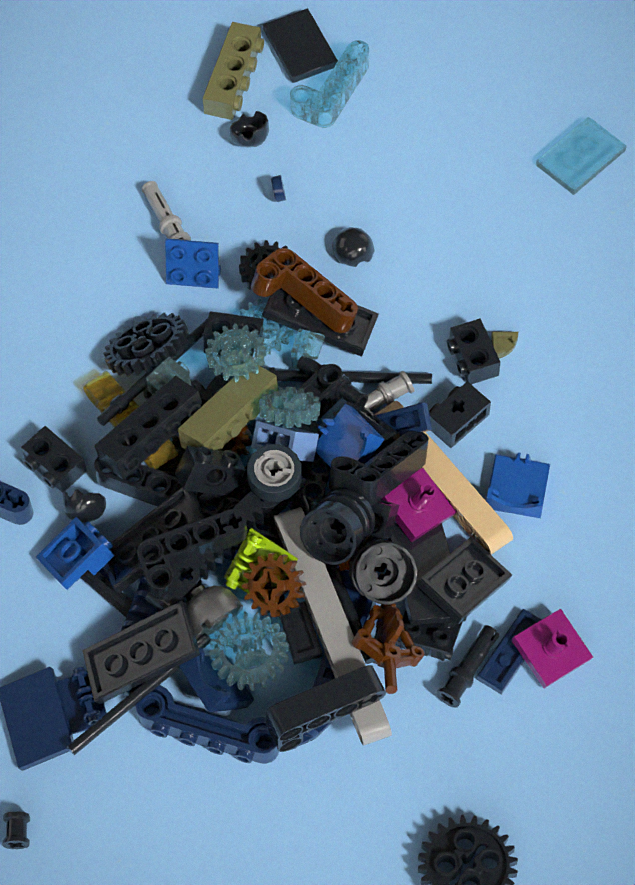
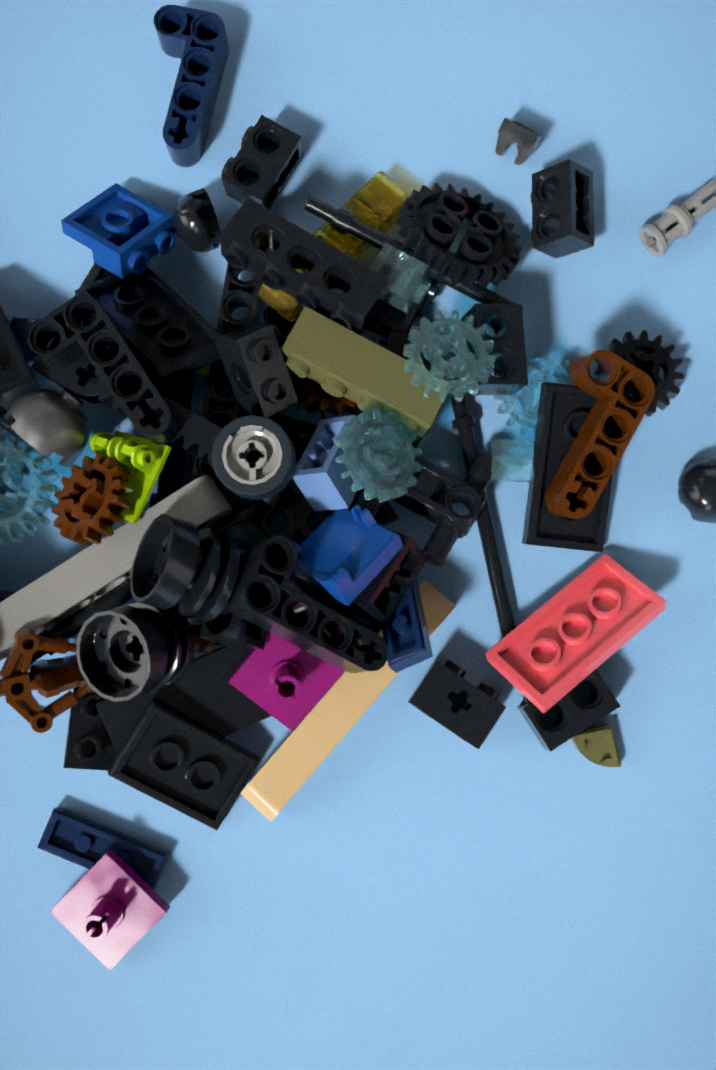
camera: 80 degrees right, 20 degrees up
(88, 297) = (513, 131): none -> black tile
(145, 278) = (562, 209): none -> black brick
(192, 263) = (613, 266): blue hinge -> none
(300, 634) = (41, 555): black tile -> none
(388, 392) = (464, 589): light grey pin -> none
(427, 333) = (575, 632): none -> coral plate
(462, 676) = (47, 787): black pin -> none
(518, 485) = (361, 812): blue piece -> none

